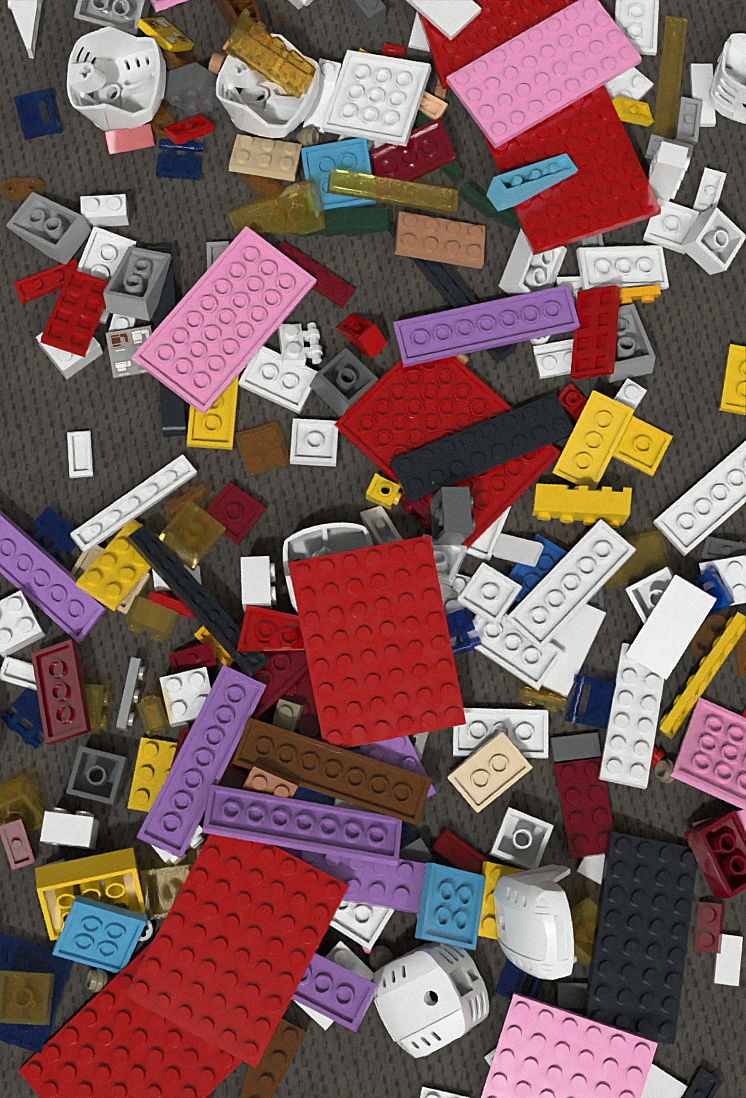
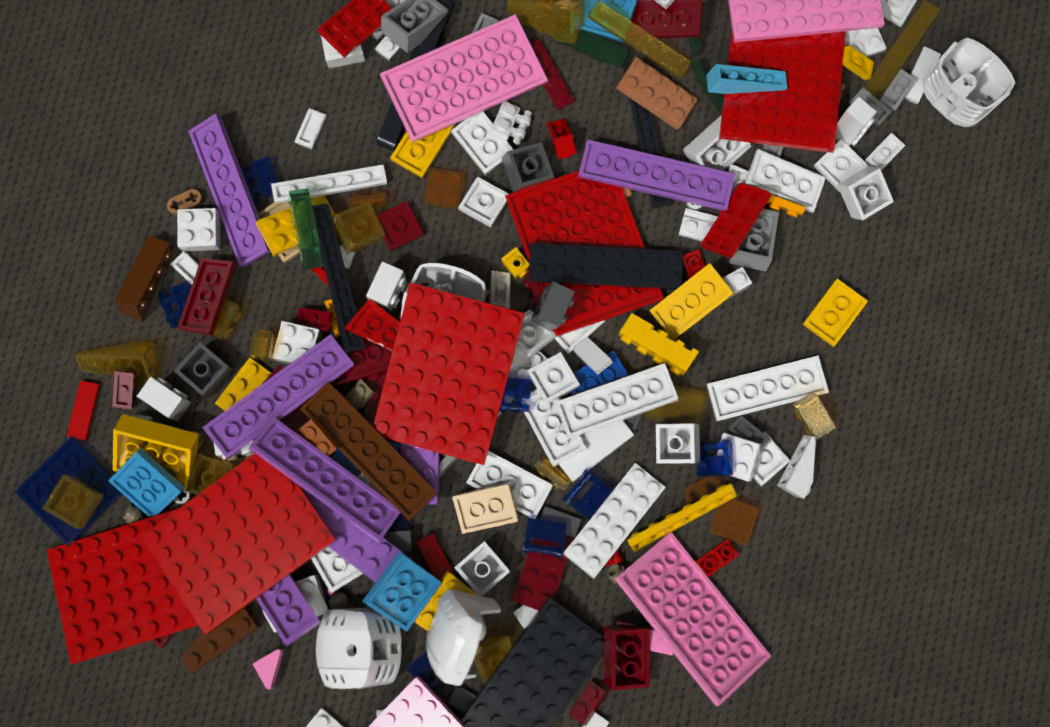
camera: 35 degrees right, 5 degrees up
(123, 346) = (380, 62): light grey tile -> none
(131, 694) = (258, 322): light grey plate -> none
(137, 563) = (305, 228): none -> clear green slope
(151, 619) = (304, 280): clear yellow brick -> none
(340, 1071) = (268, 668): none -> bright pink slope
(568, 763) = (545, 531): none -> clear blue plate
(642, 446) = (729, 323): yellow tile -> none
(671, 626) = (674, 469): white tile -> none

